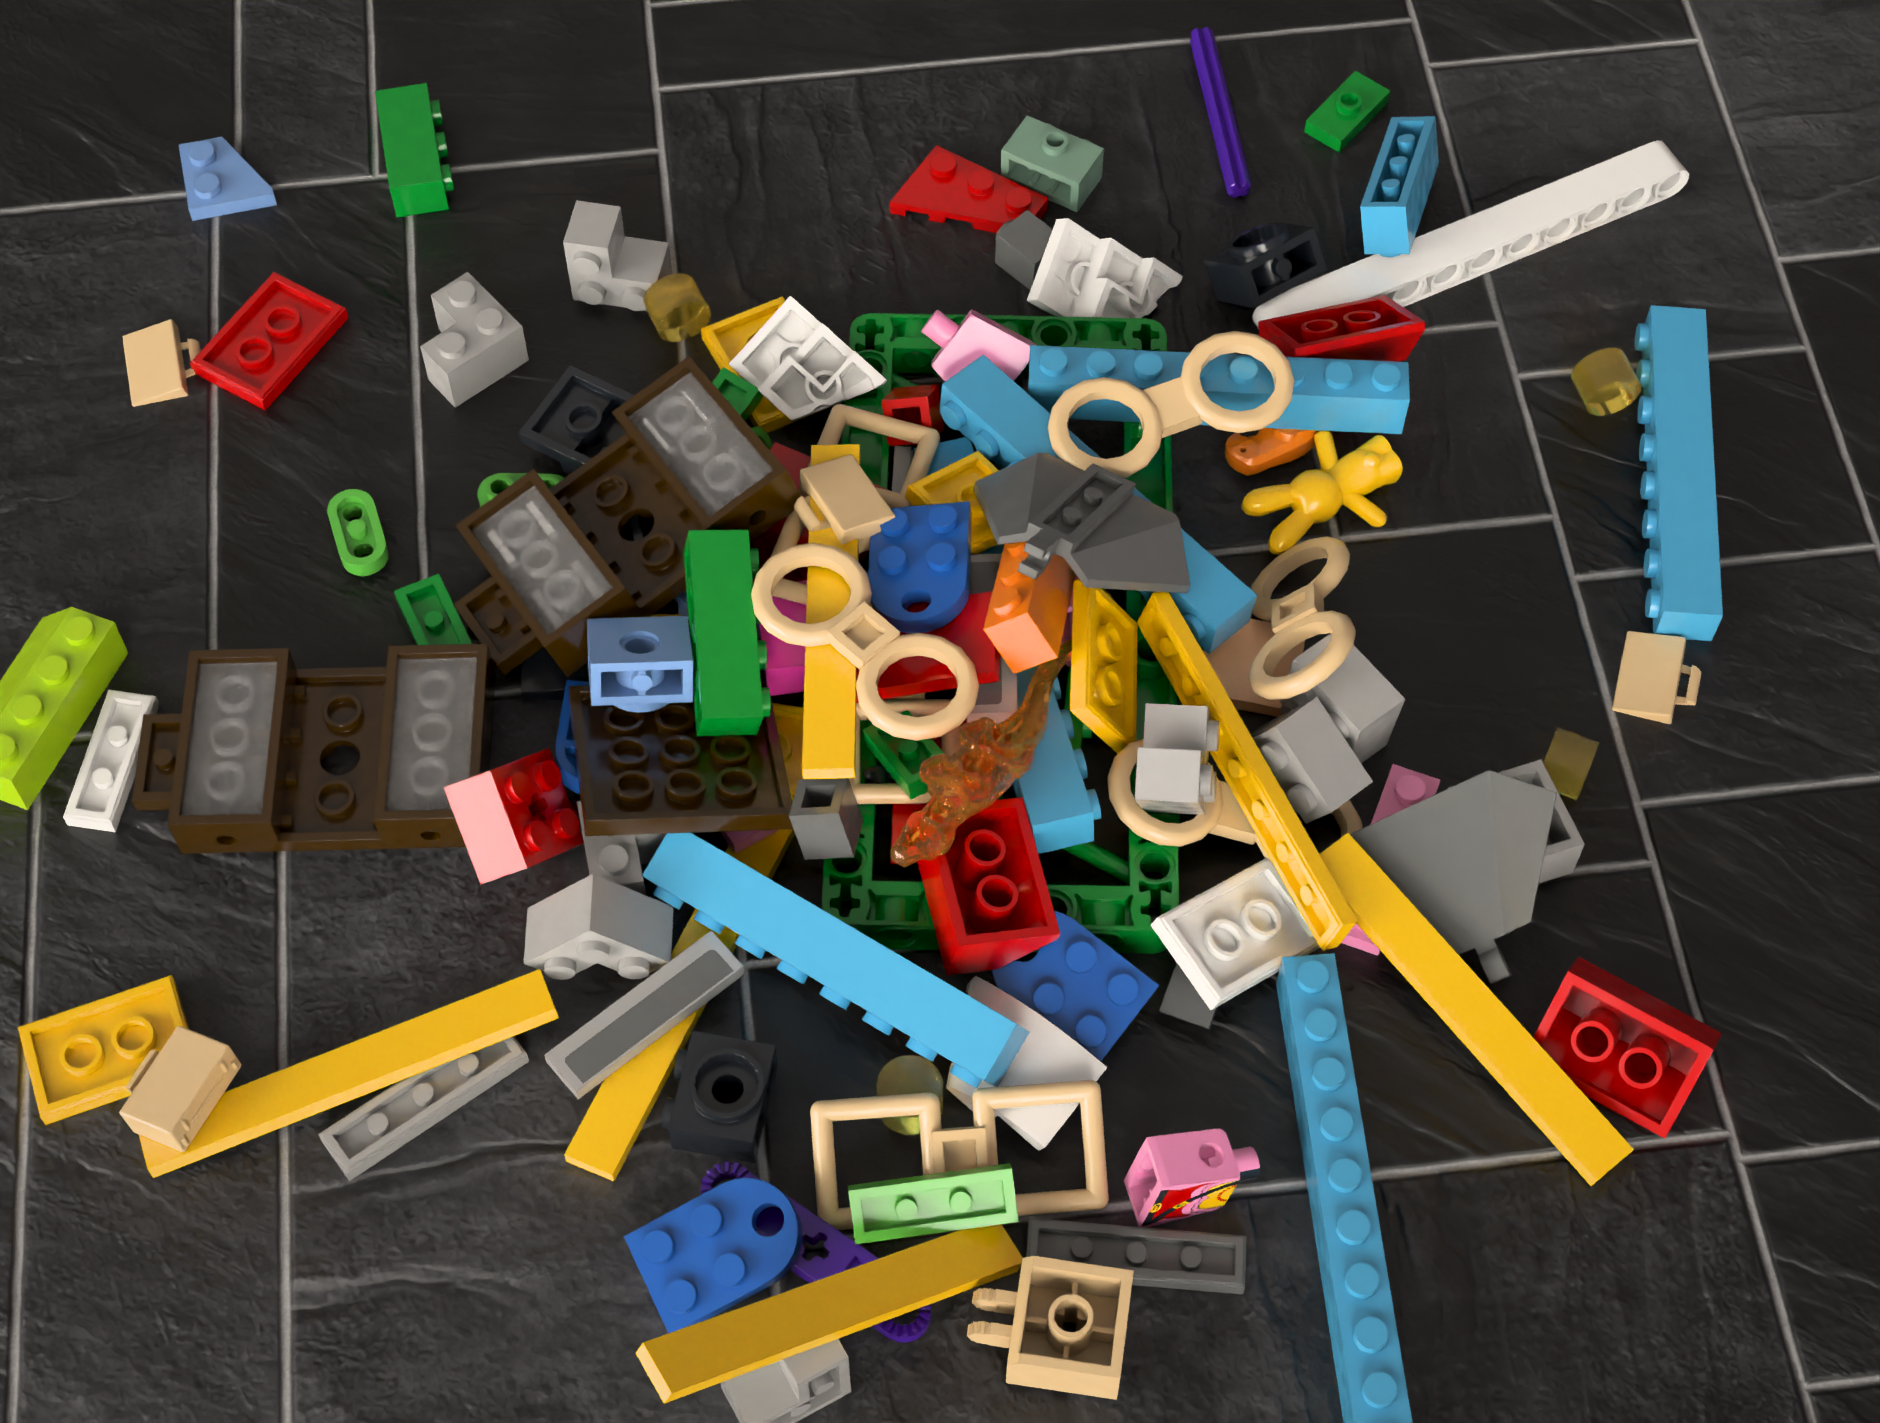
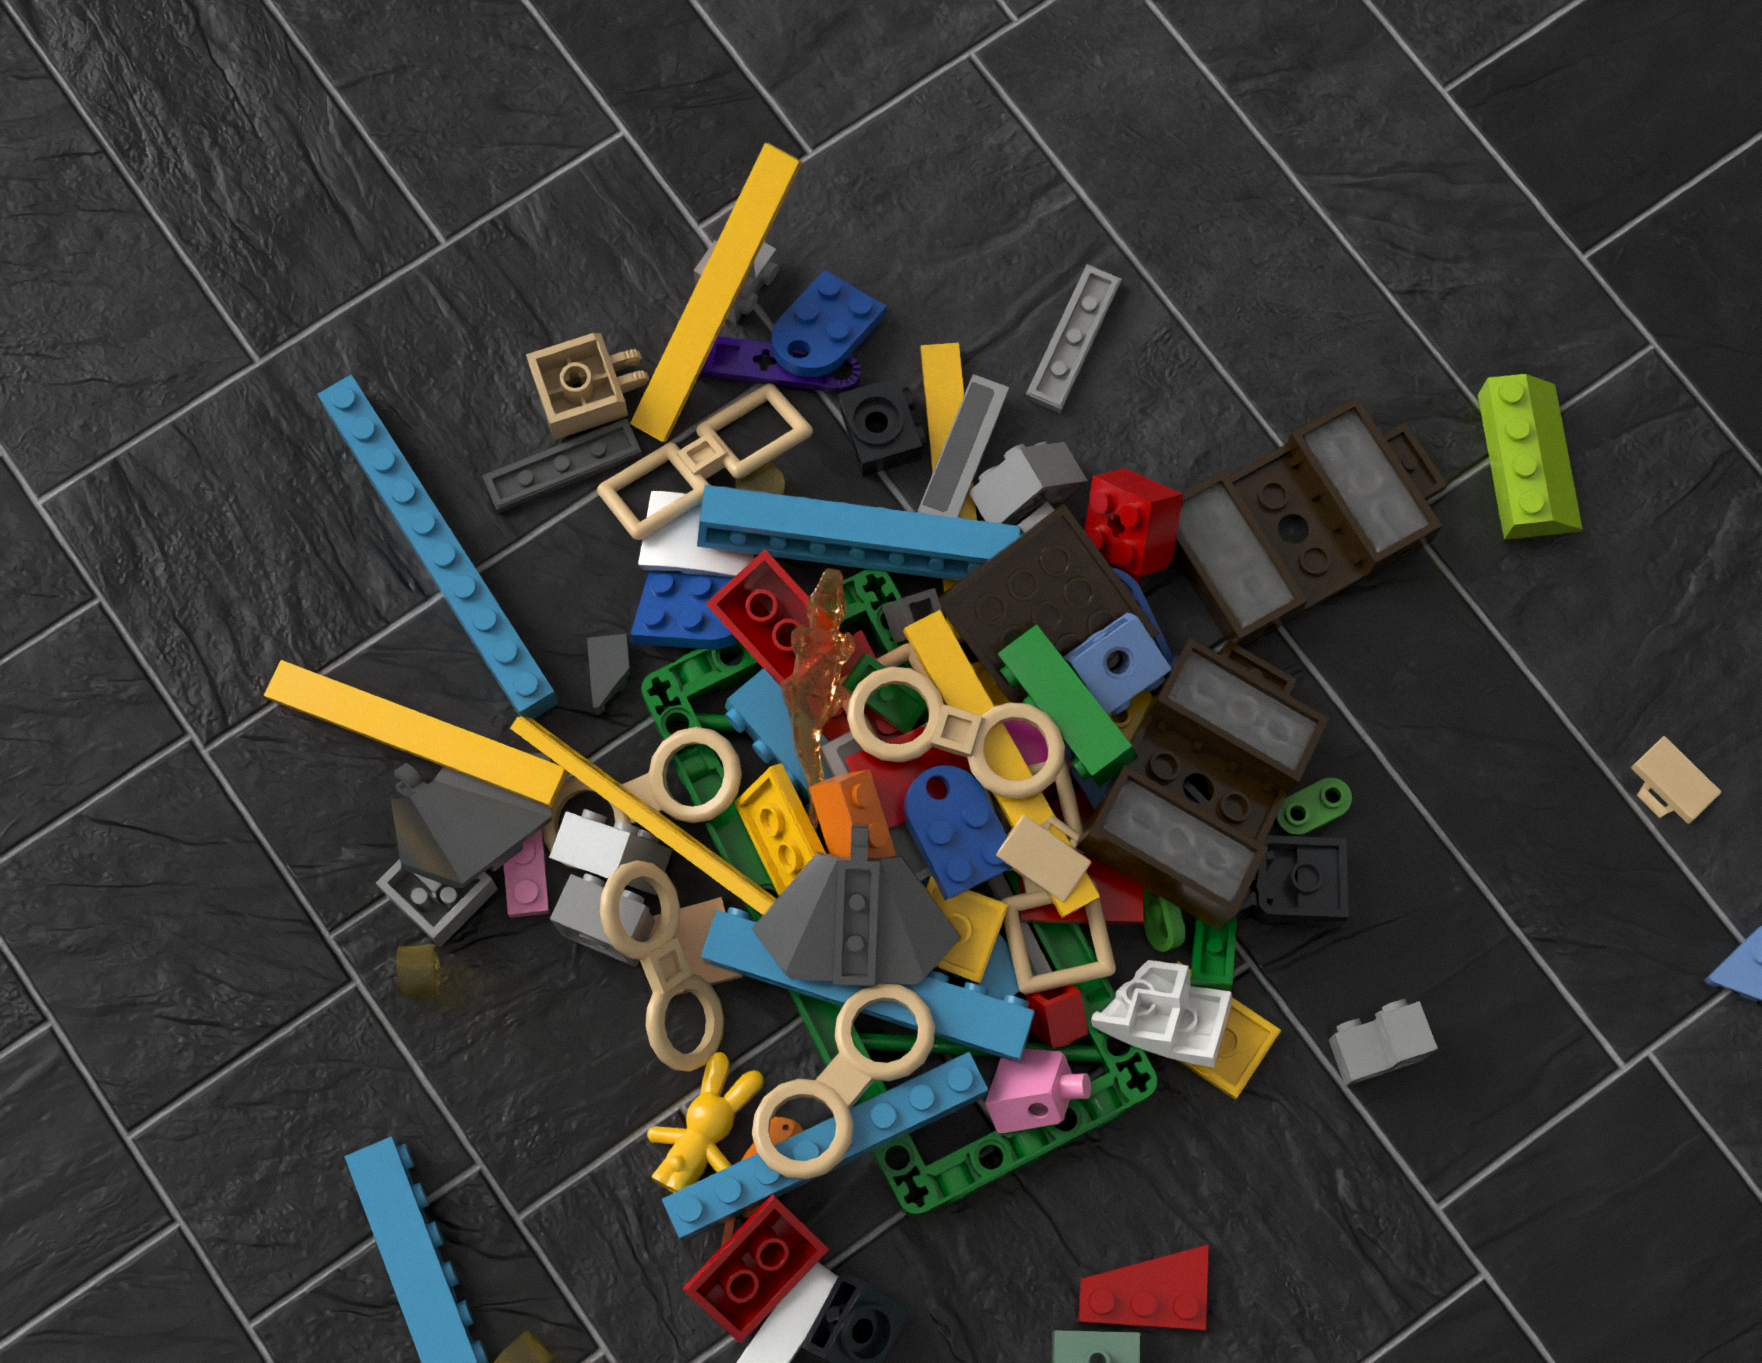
camera: 150 degrees right, 15 degrees up
(95, 1049) = (1294, 267): yellow tile -> none
(109, 762) = (1449, 452): white tile -> none
(178, 1087) = (1223, 250): tan piece -> none
(269, 340) = (1606, 844): red tile -> none
(359, 535) = (1413, 705): bright green plate -> none
(362, 1068) = (1127, 323): yellow tile -> none
(414, 150) = (1630, 1080): green brick -> none
(431, 613) = (1311, 667): green plate -> none
(476, 342) = (1438, 919): light grey brick -> none
(676, 307) = (1309, 1031): clear yellow piece -> none
(933, 1203) = (702, 415): plate -> none
(1022, 246) = (1064, 1250): dark grey brick -> none
(1097, 277) = (987, 1245): white slope -> none
(1174, 759) = (688, 769): light grey brick -> none
(1186, 1175) = (548, 519): bright pink torso -> none
(1235, 933) = (598, 701): white tile -> none
(1625, 1046) = (296, 767): red slope -> none
(1651, 677) = (385, 1100): tan piece -> none

